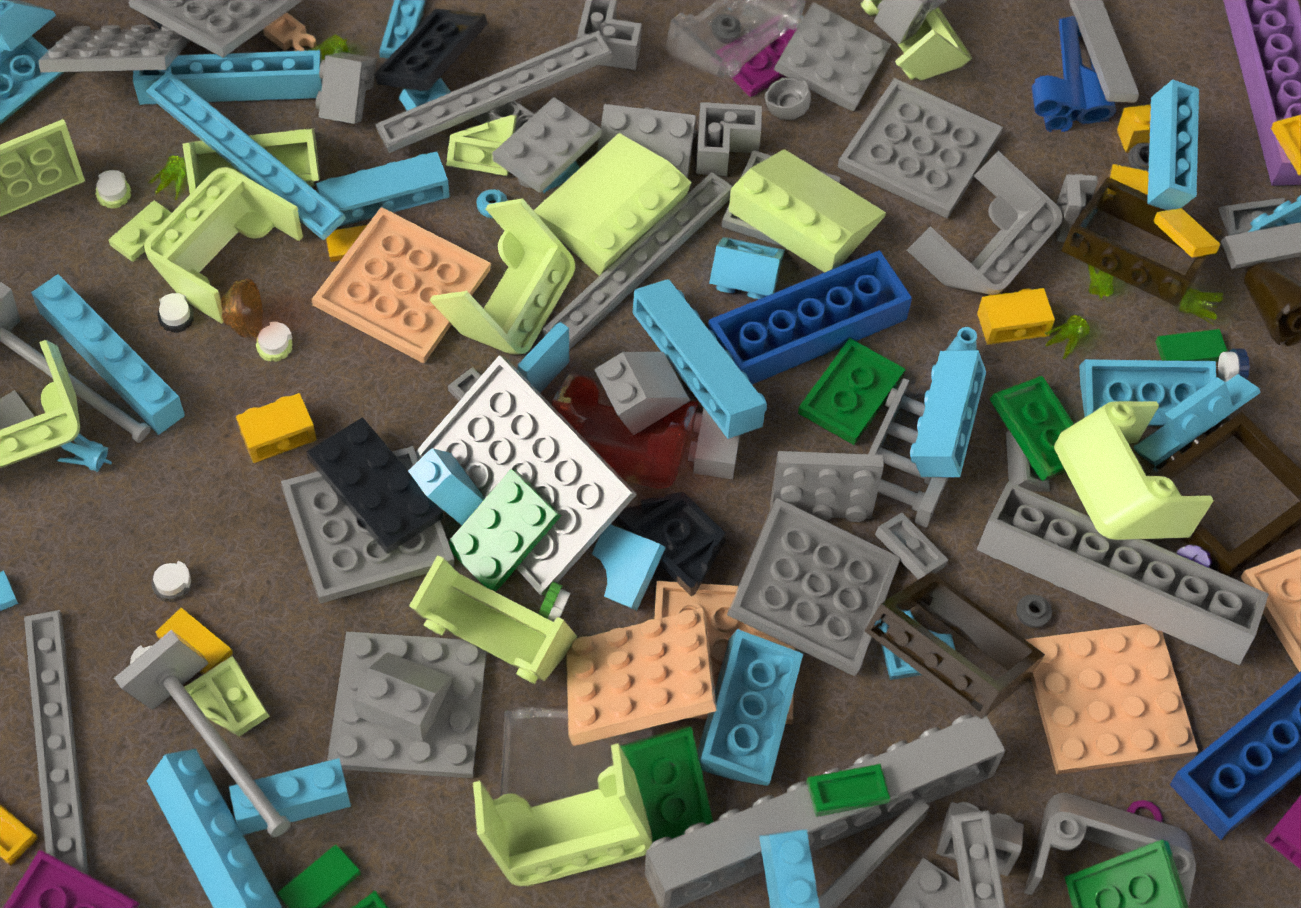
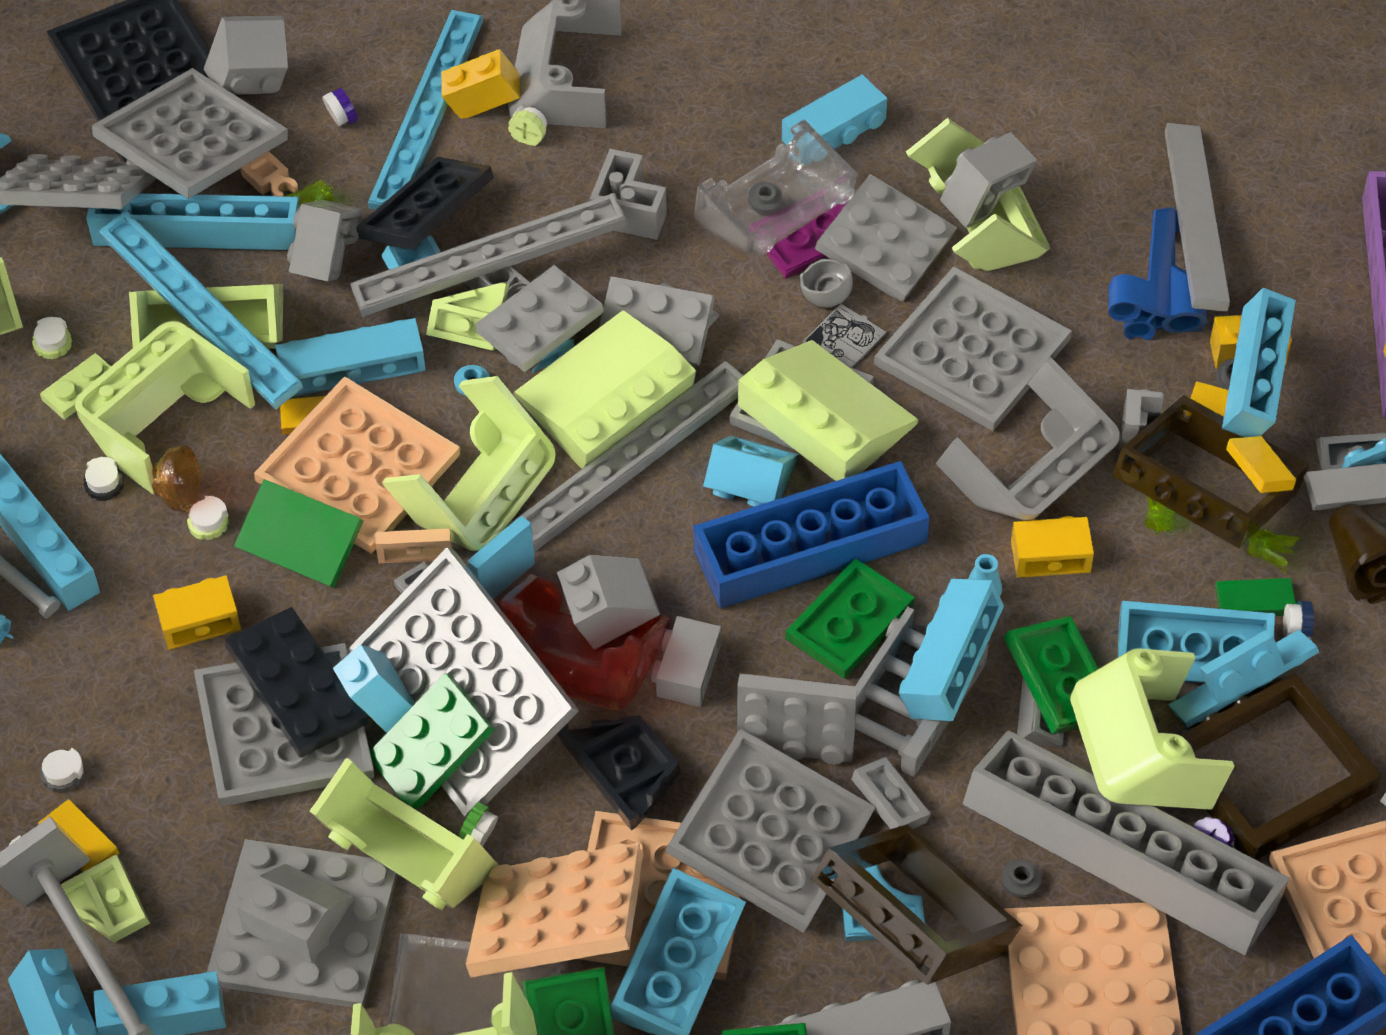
camera: 10 degrees right, 5 degrees down
(173, 170) = (118, 322): clear neon green piece -> none
(358, 350) = (299, 533): none -> green tile
(462, 354) = (411, 545): none -> light nougat tile
(628, 564) = (566, 790): medium azure tile -> none
(699, 358) = (677, 568): medium azure brick -> none
(726, 130) = (746, 314): light grey brick -> none
(810, 143) = (847, 335): none -> piece
(1074, 328) = (1119, 566): clear neon green piece -> none

